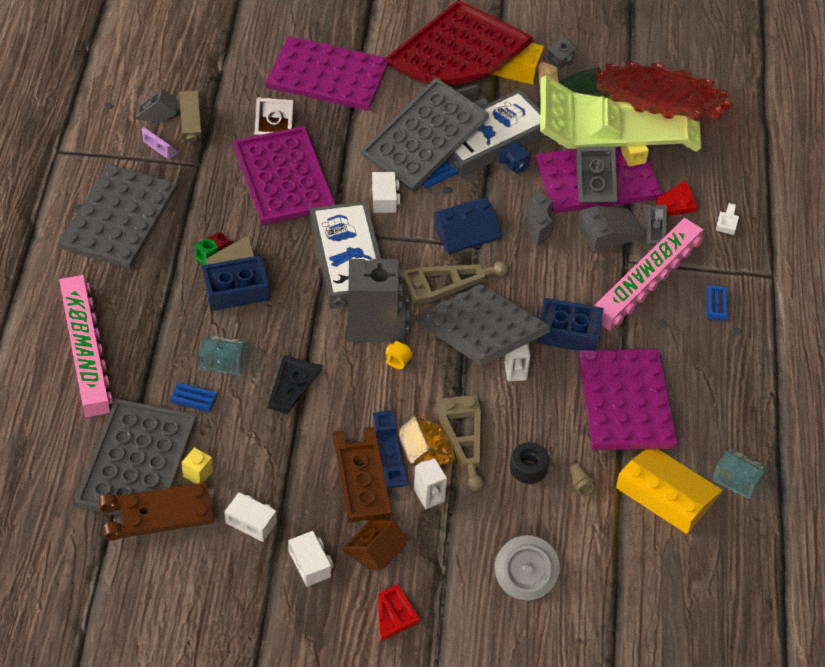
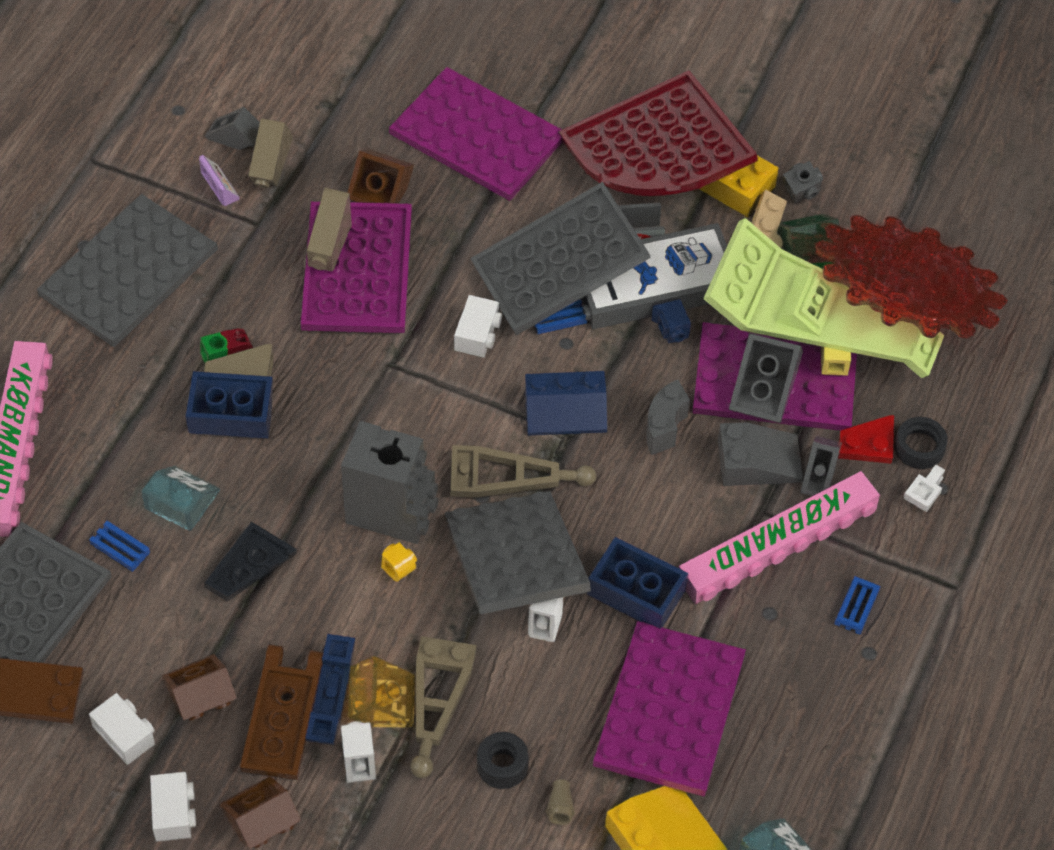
camera: 20 degrees right, 5 degrees up
(197, 466) = (83, 643): light yellow brick -> none
(258, 151) = (329, 230): none -> dark tan slope
(295, 473) = (200, 687): none -> reddish brown slope
(340, 235) = (396, 382): brick -> none
(715, 183) = (924, 426): none -> black tyre

